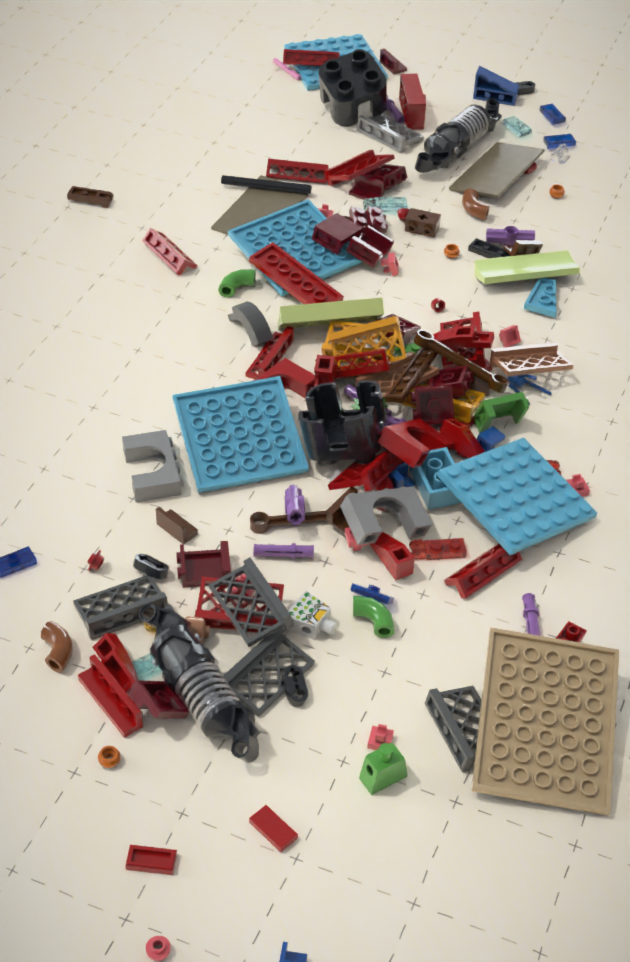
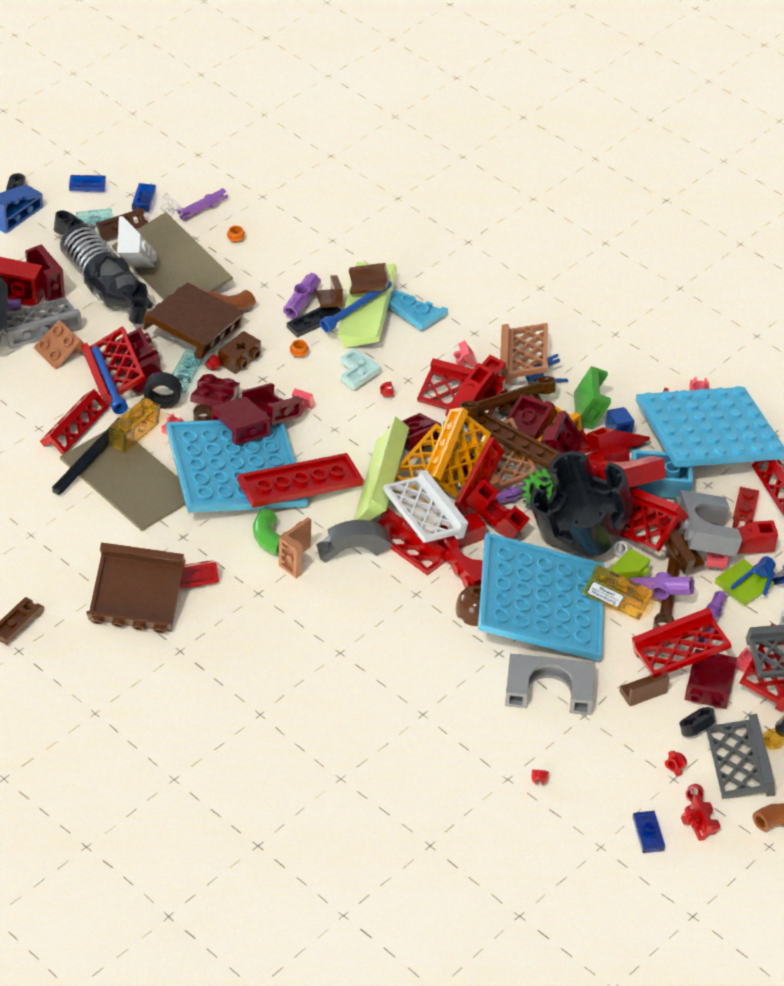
camera: 70 degrees left, 0 degrees up
(35, 585) = (698, 816): none -> red hips
(48, 482) = (542, 775): none -> hinge
(68, 581) = (690, 791): none -> red hinge
(137, 233) = (137, 587): none -> reddish brown panel
(222, 291) = (292, 546): none -> nougat bracket
(237, 522) = (675, 633): none -> red fence
(270, 478) = (617, 592): none -> clear yellow brick
(299, 190) = (134, 424): none -> clear yellow brick
(302, 349) = (438, 503): none -> white fence
(313, 484) = (632, 565): none -> lime slope
(319, 178) = (118, 403): none -> blue piece
(342, 566) = (748, 589): none -> lime tile
(349, 194) = (167, 380): none -> black tyre
(359, 568) = (762, 568): none -> blue plant
(378, 141) = (58, 344): none -> nougat bracket
(430, 118) = (52, 272): none -> dark red panel
(433, 189) = (195, 318): none -> reddish brown panel
(451, 287) = (360, 368): none -> light aqua plate
(481, 251) = (329, 322): none -> blue piece
(482, 134) = (134, 247): none -> white slope
(517, 136) = (109, 227): none -> reddish brown plate
(543, 255) = (369, 278): none -> reddish brown panel
(577, 168) = (208, 201): none -> medium lavender pin

